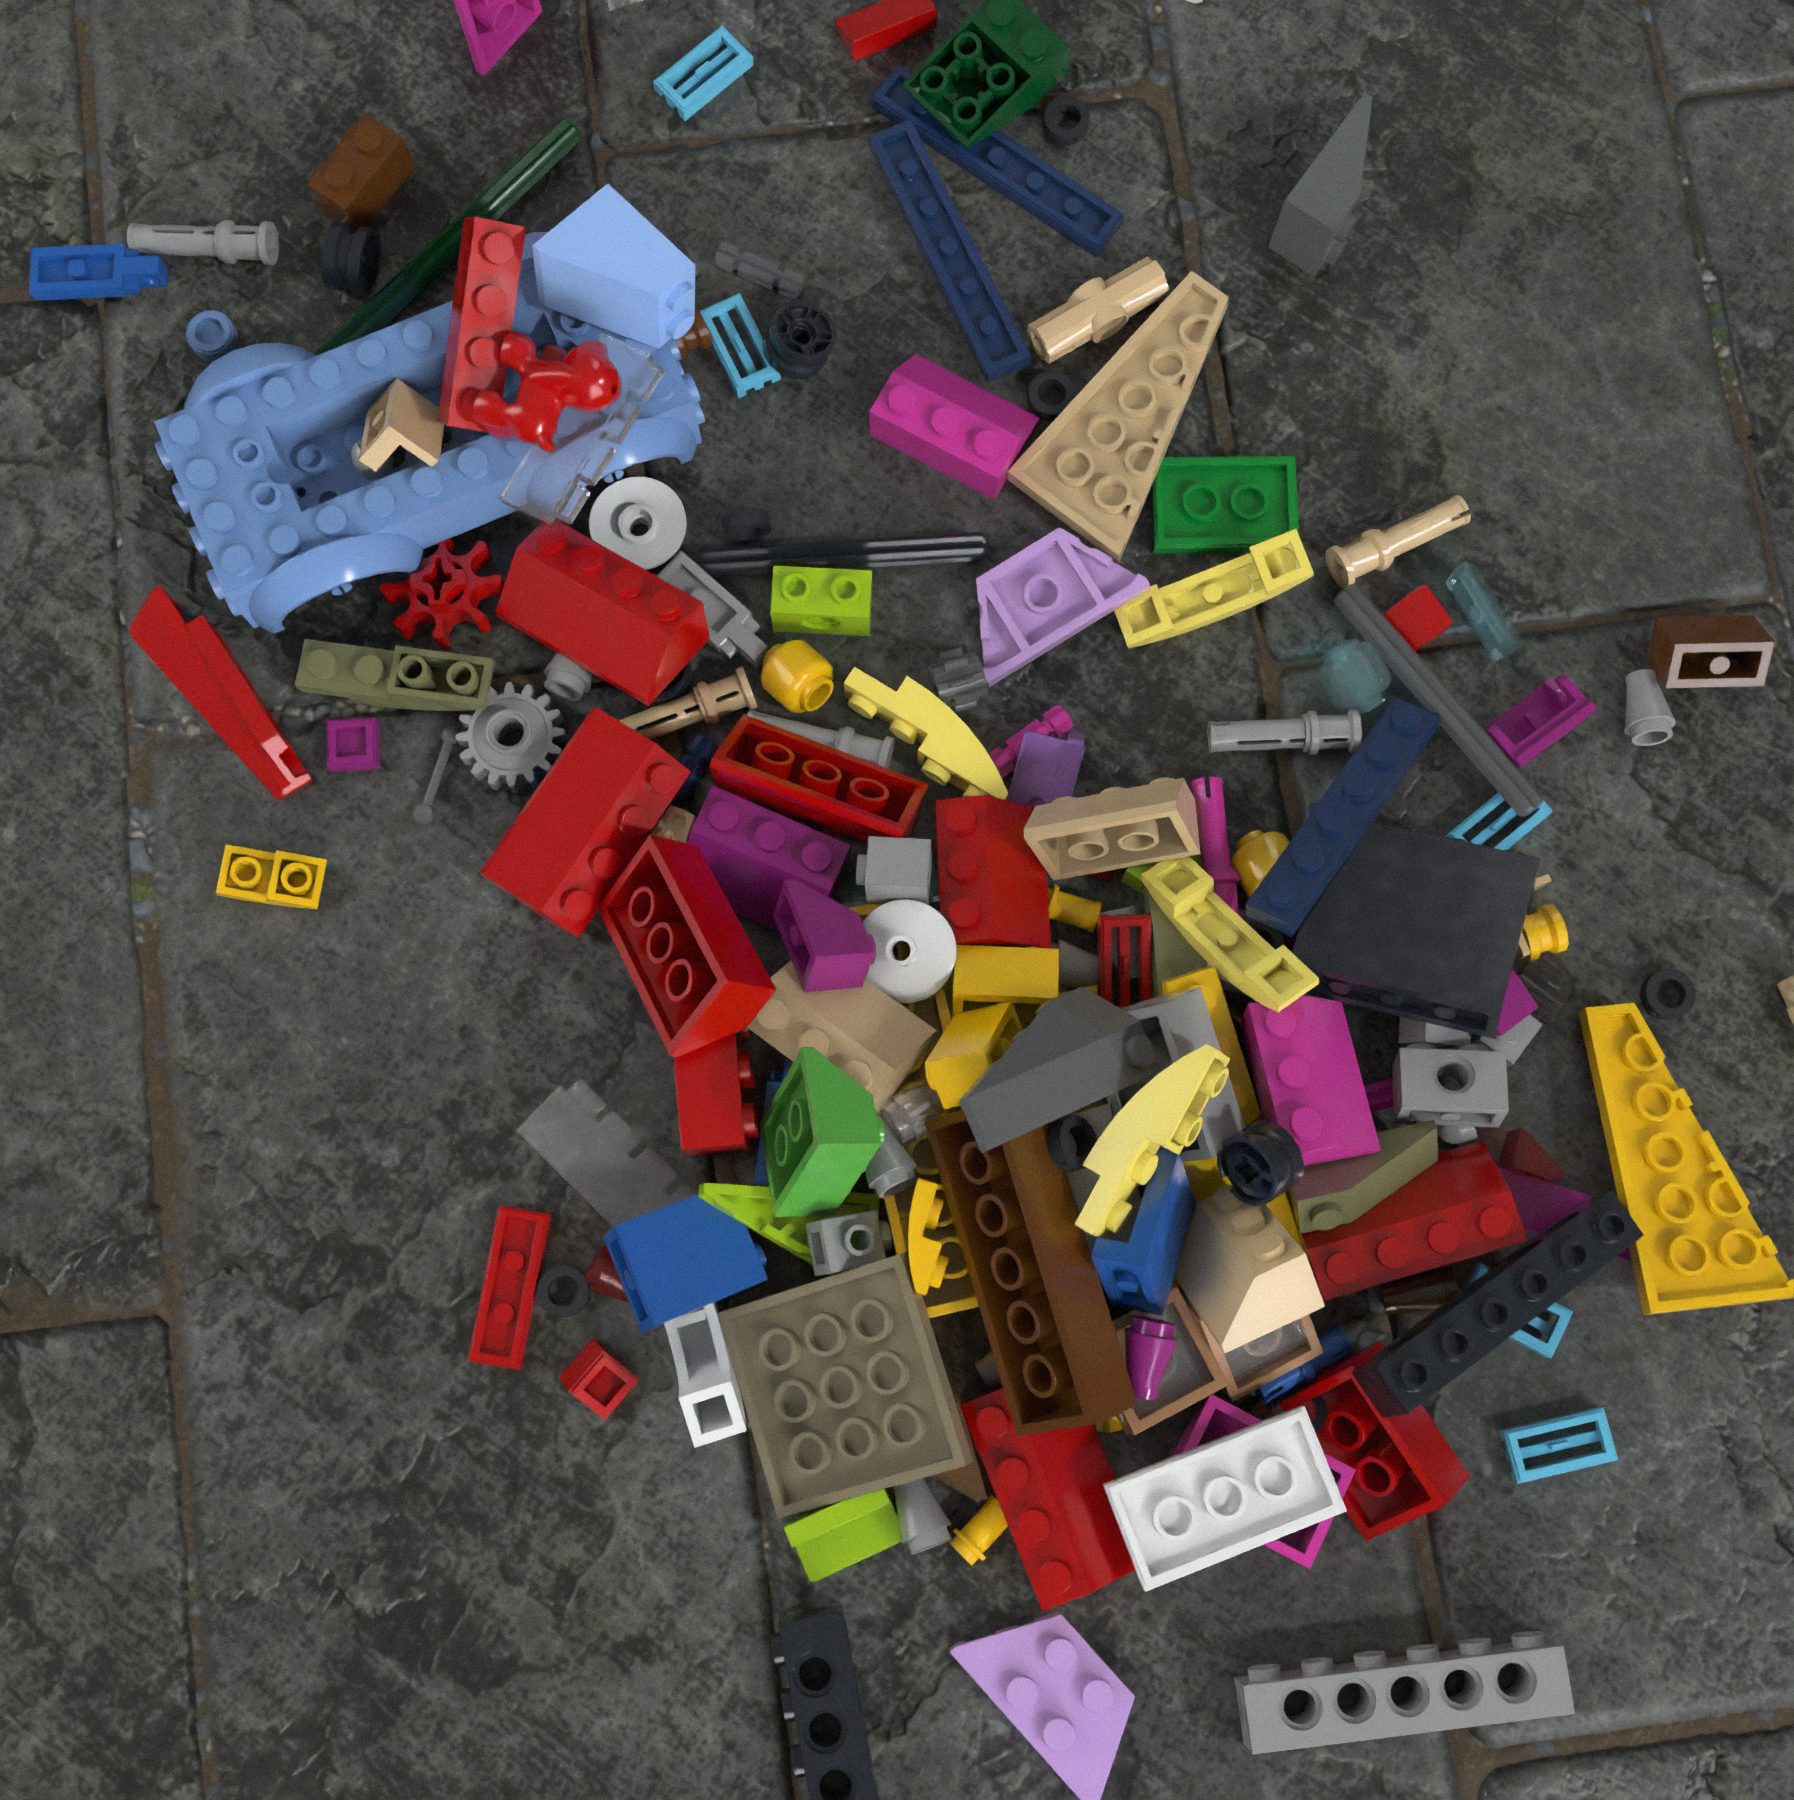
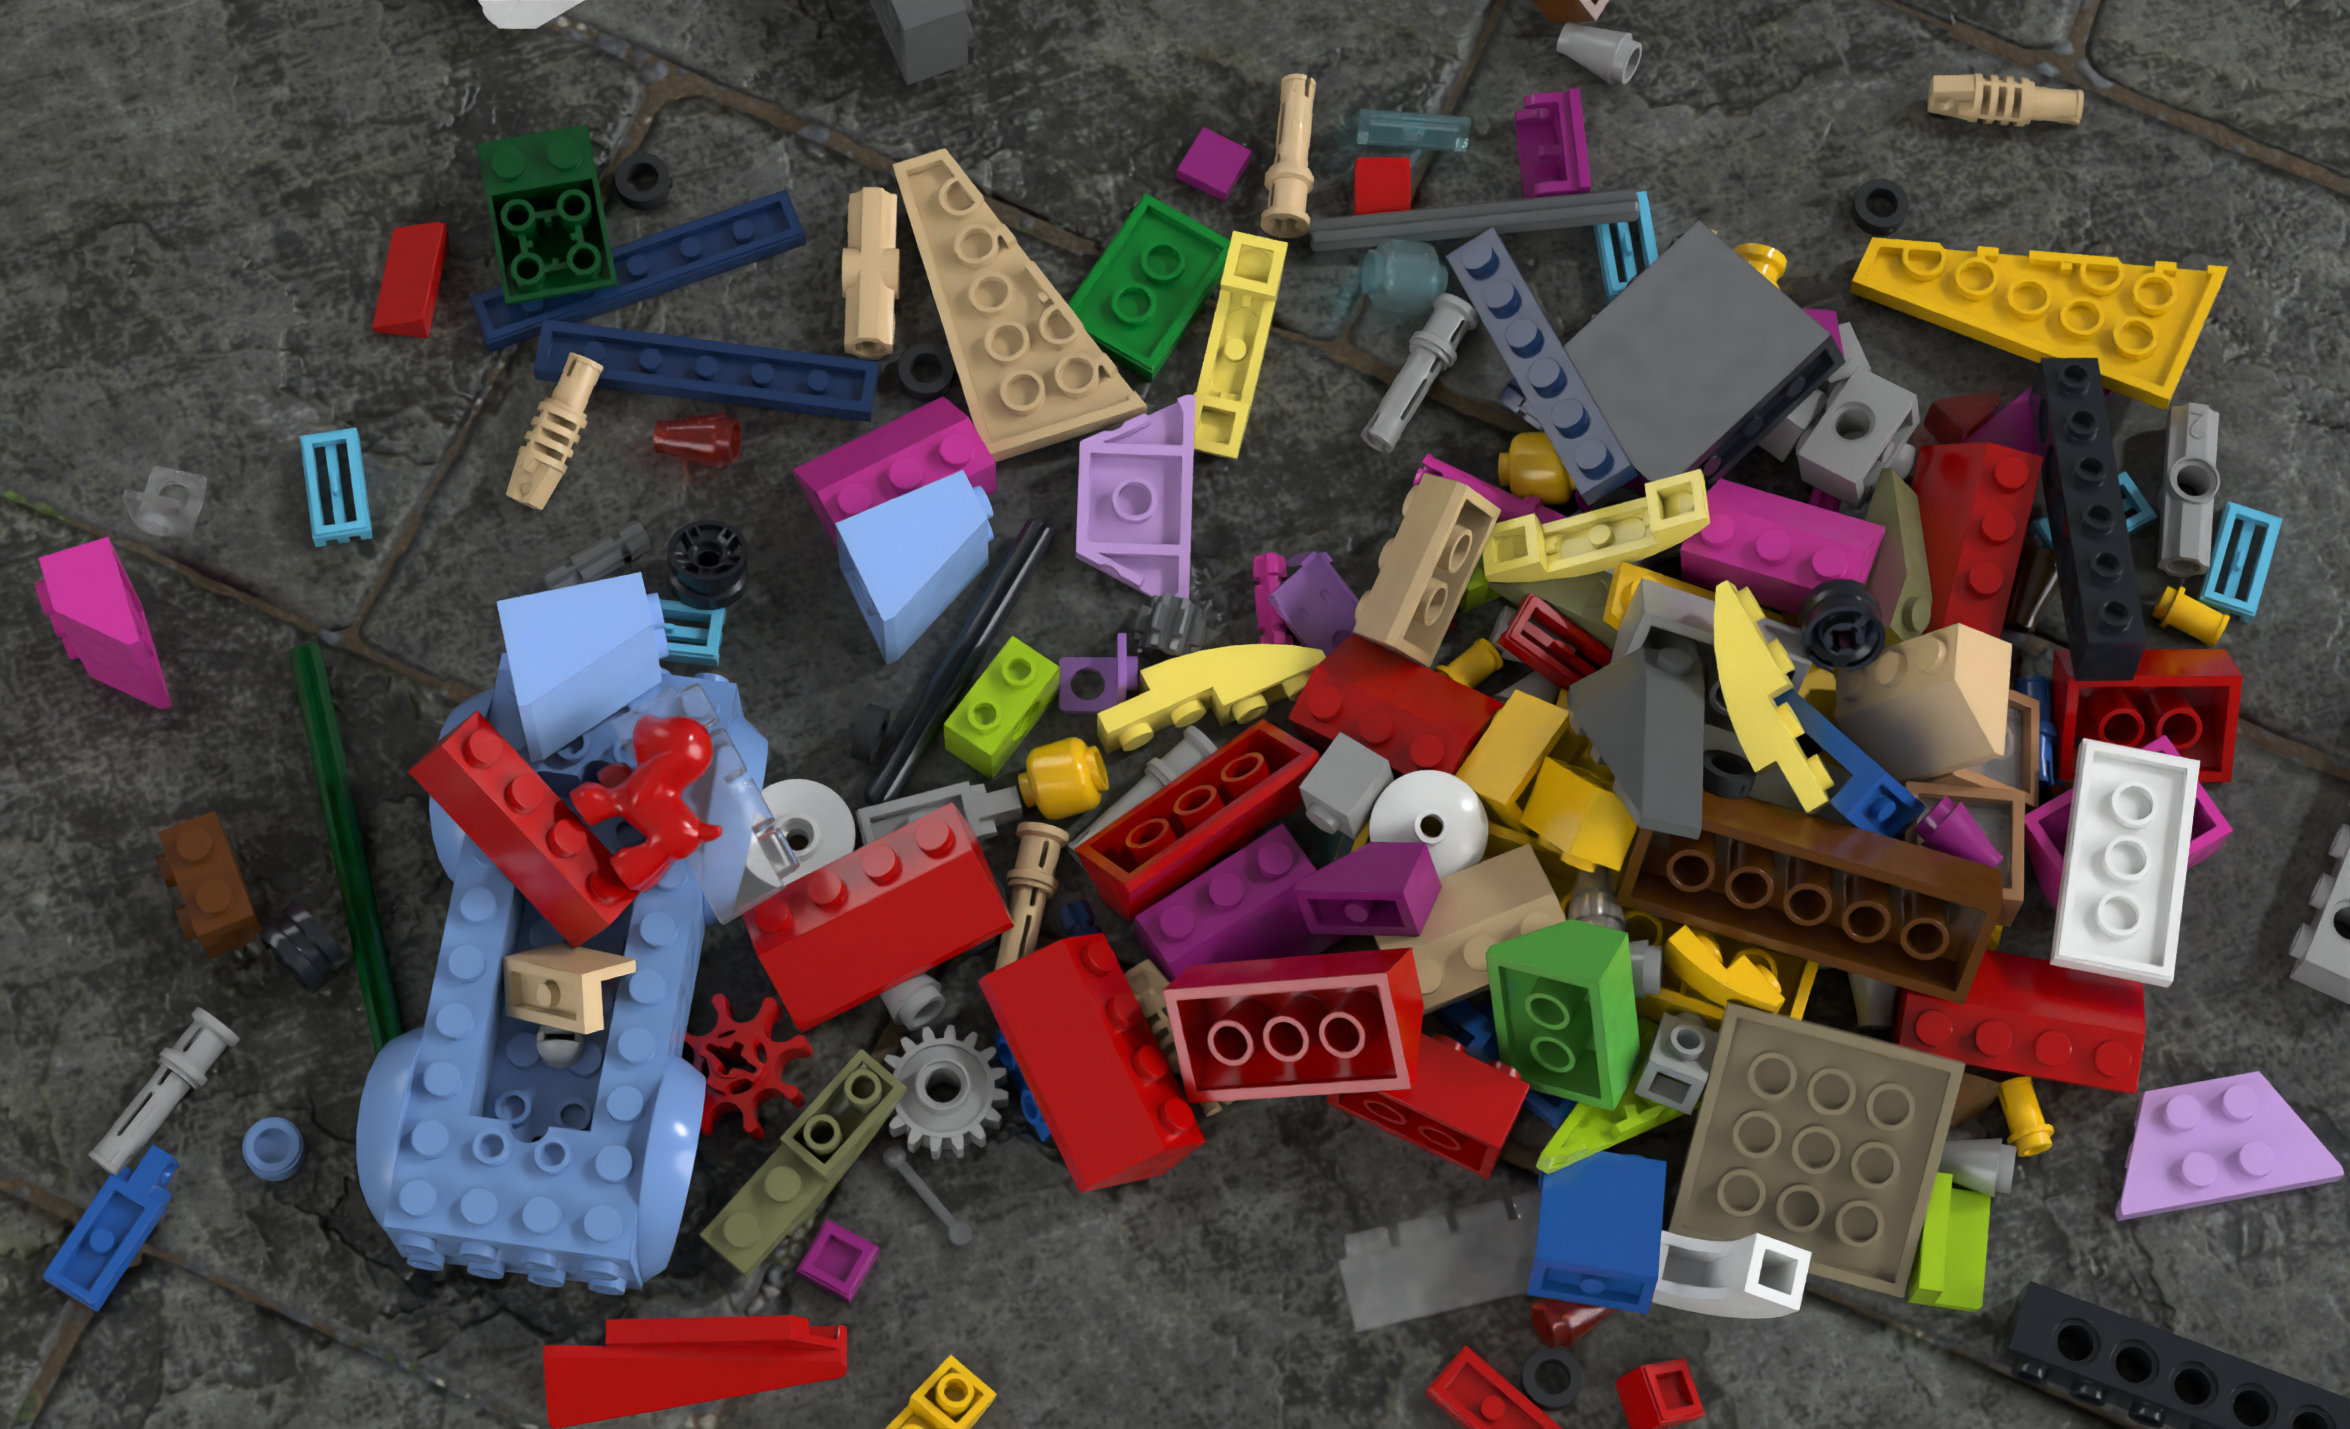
camera: 60 degrees left, 10 degrees down
(829, 179) = (554, 432): none -> tan hinge
(888, 470) = (914, 557): none -> light blue slope
(895, 280) = (702, 439): none -> clear red cone
(896, 669) = (1118, 674): none -> medium lavender bracket
(1353, 490) = (1214, 164): none -> magenta tile
(1483, 1431) = (2189, 616): none -> yellow pin
(1618, 1359) = (2187, 519): none -> light grey piece

